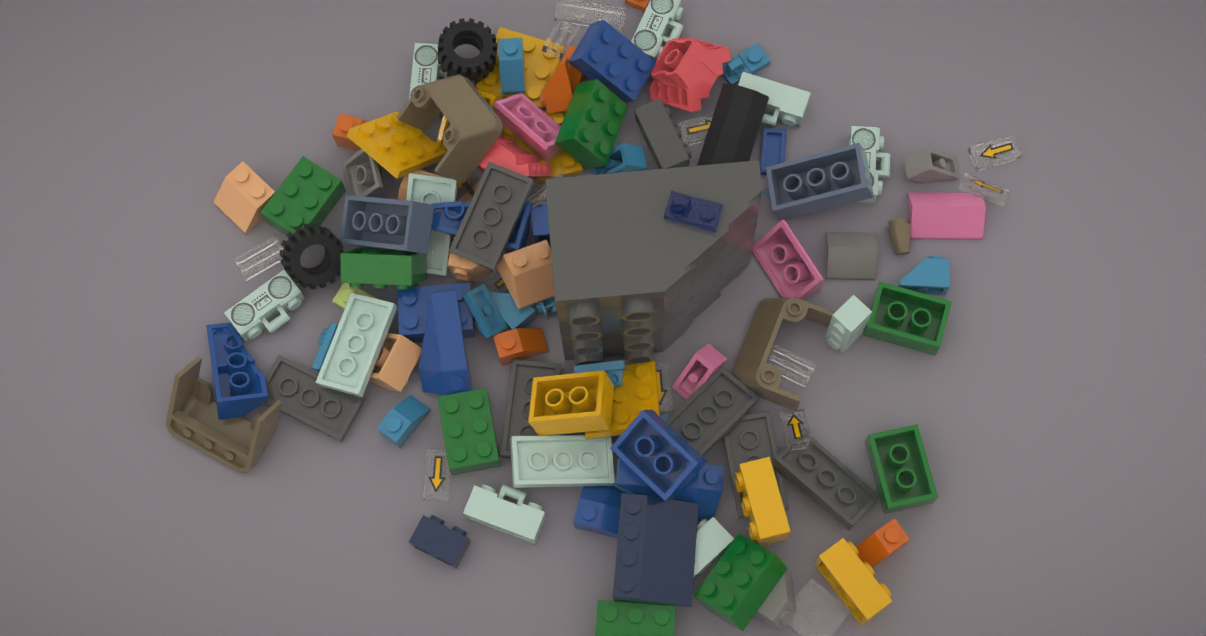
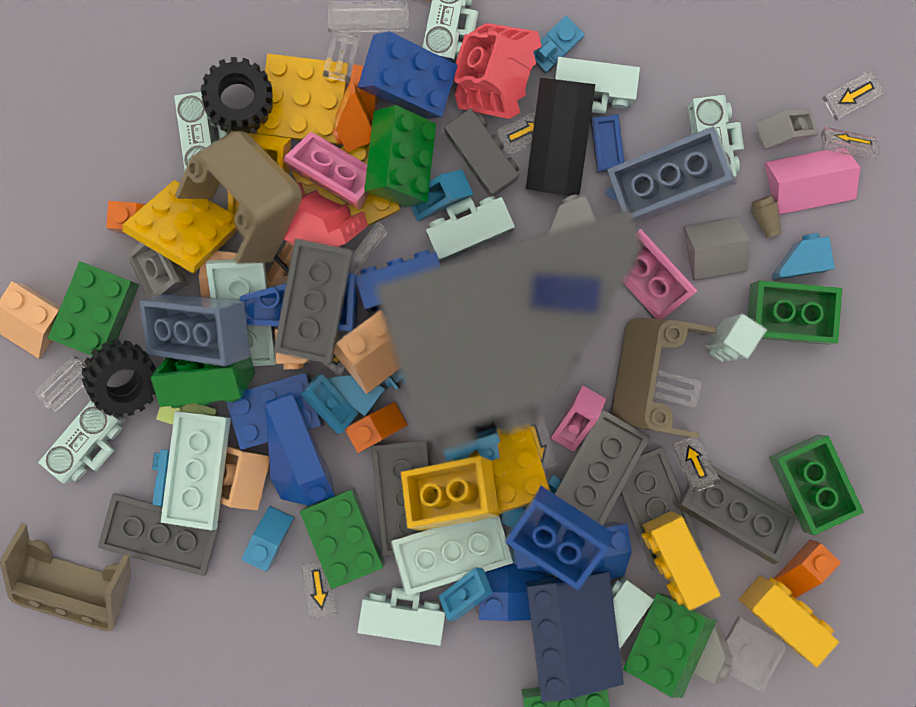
camera: 20 degrees left, 15 degrees up
(236, 378) = (69, 529): blue wedge -> none
(440, 541) = (339, 663): dark blue brick -> none
(511, 65) = (293, 102): dark azure slope -> none
(566, 496) = (465, 594): none -> dark azure plate

